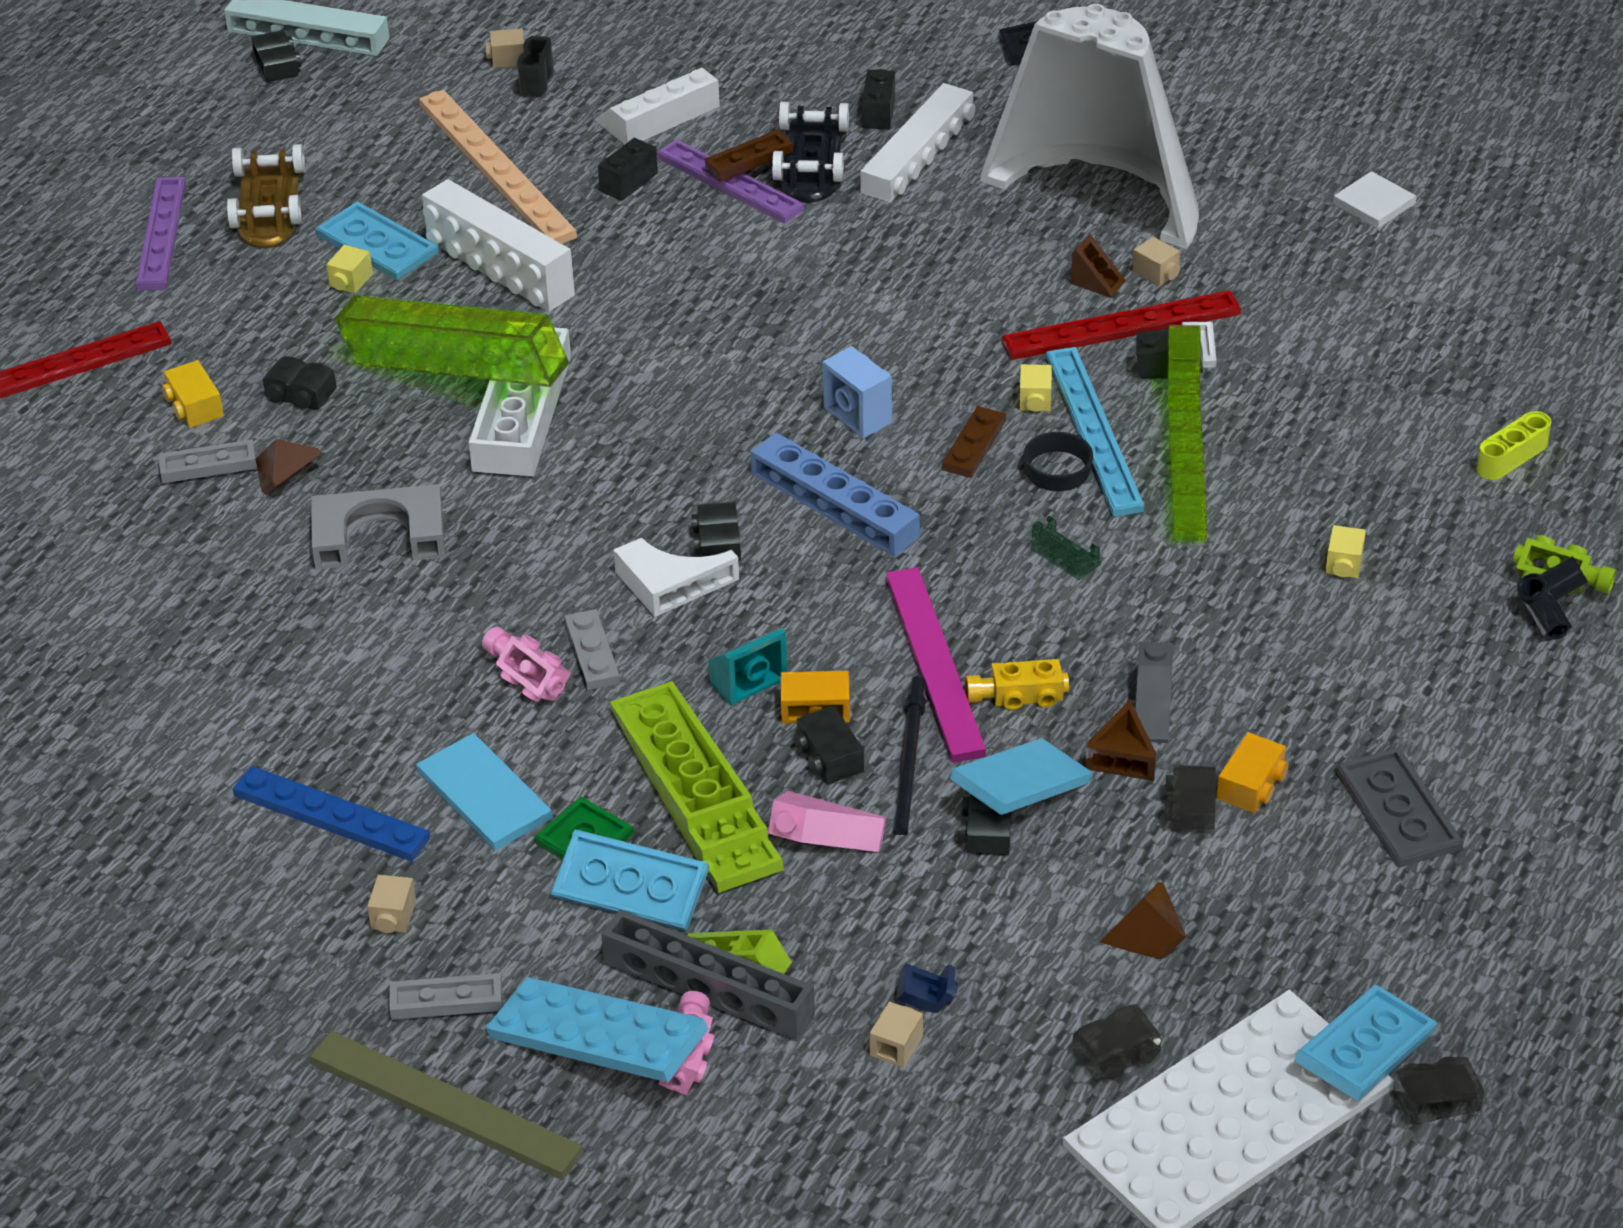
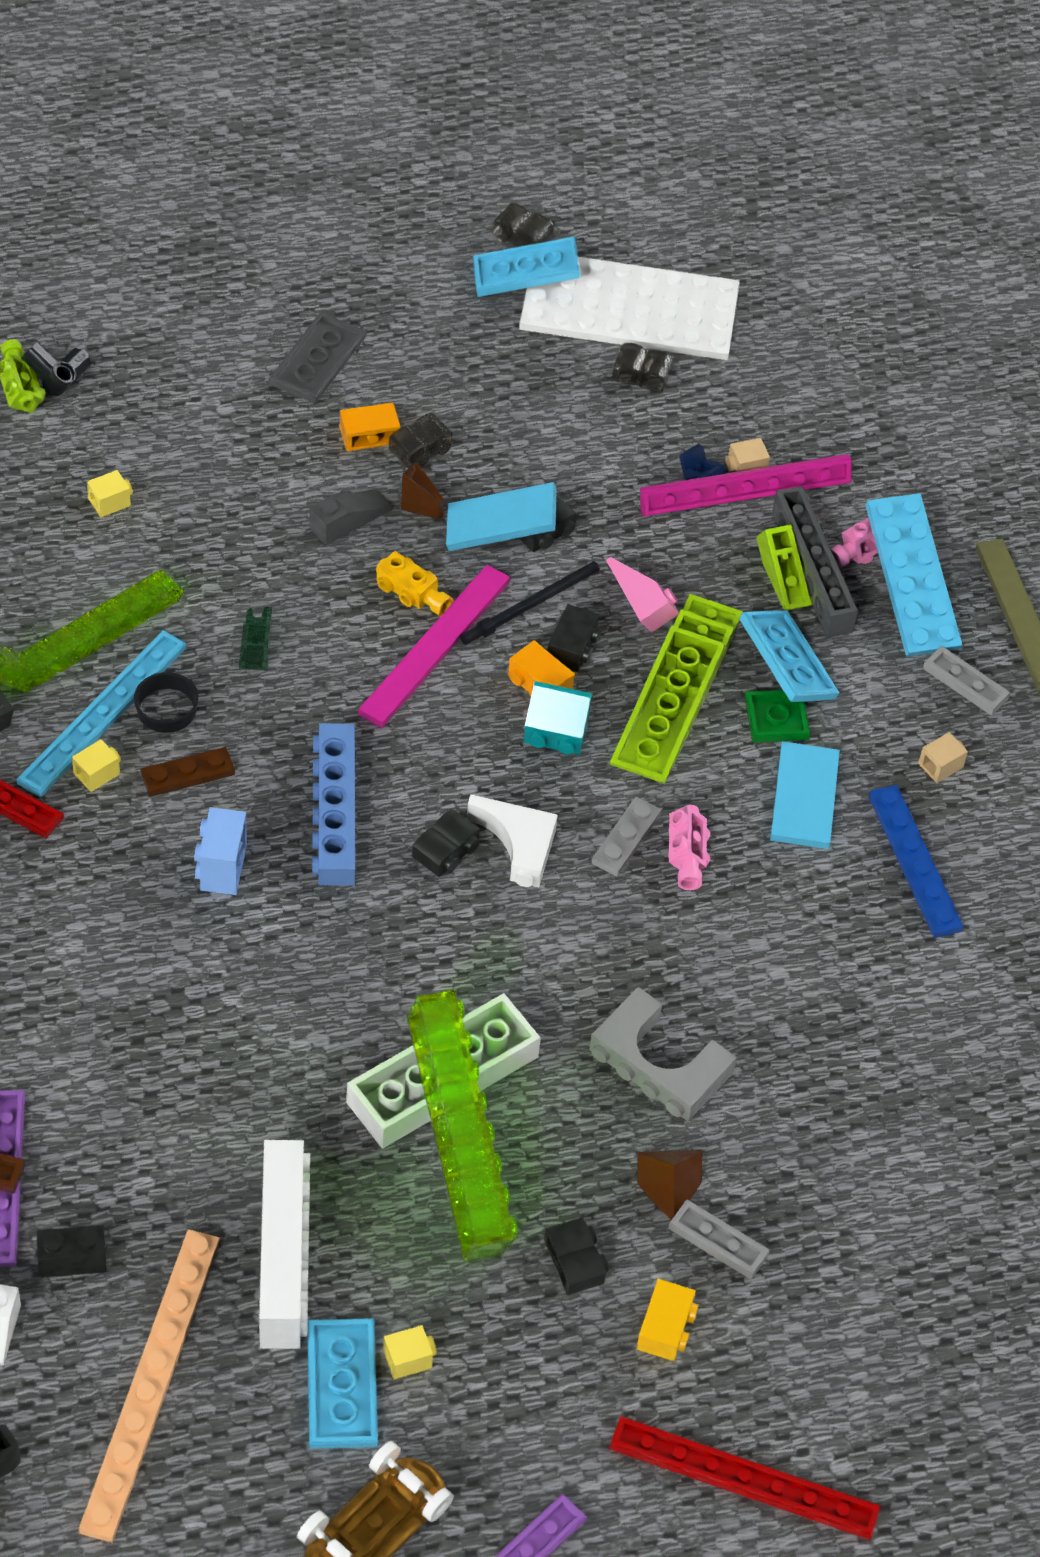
camera: 140 degrees left, 10 degrees up
(862, 1009) = (744, 485): none -> dark pink tile
(1149, 926) = (540, 408): reddish brown slope -> none

